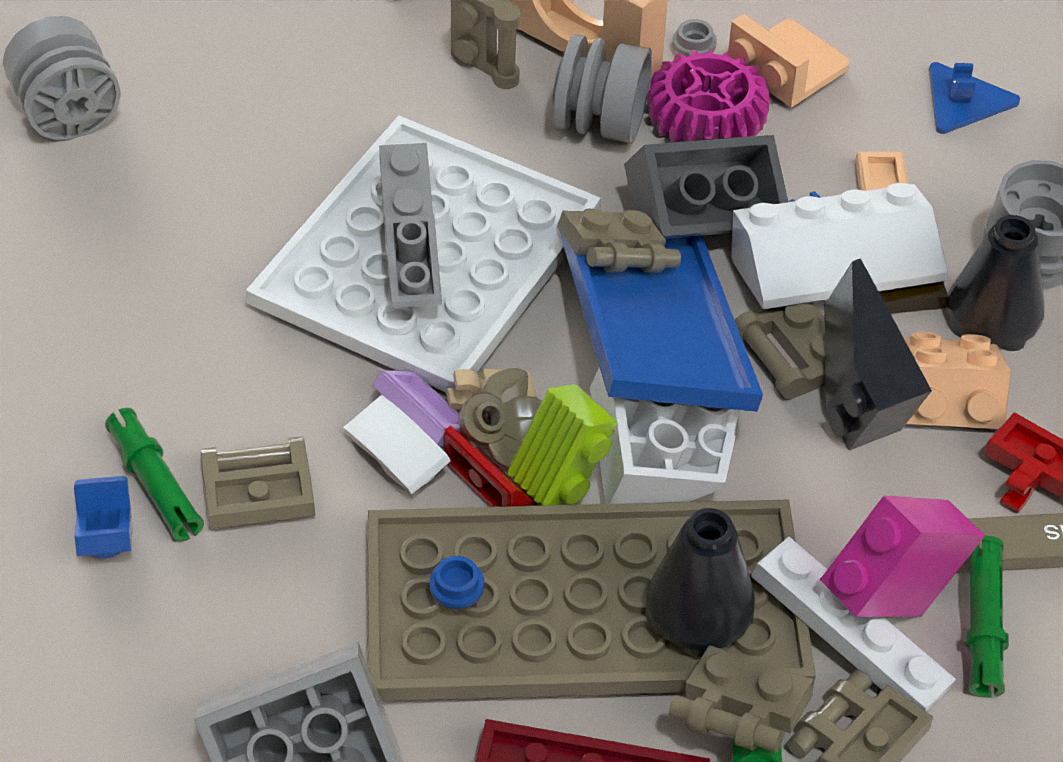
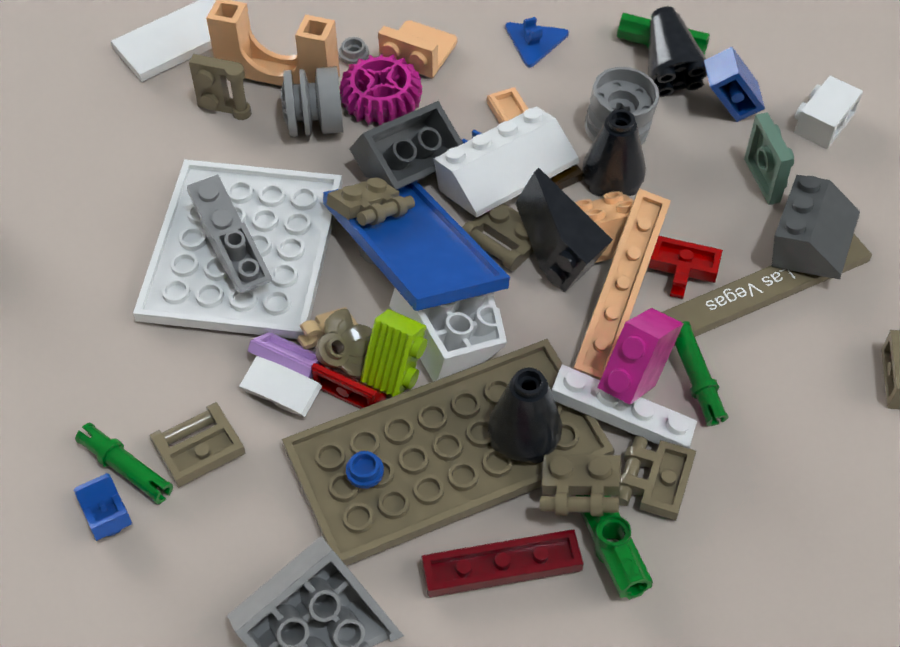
camera: 20 degrees left, 5 degrees up
(940, 440) = (622, 282): none -> light nougat plate

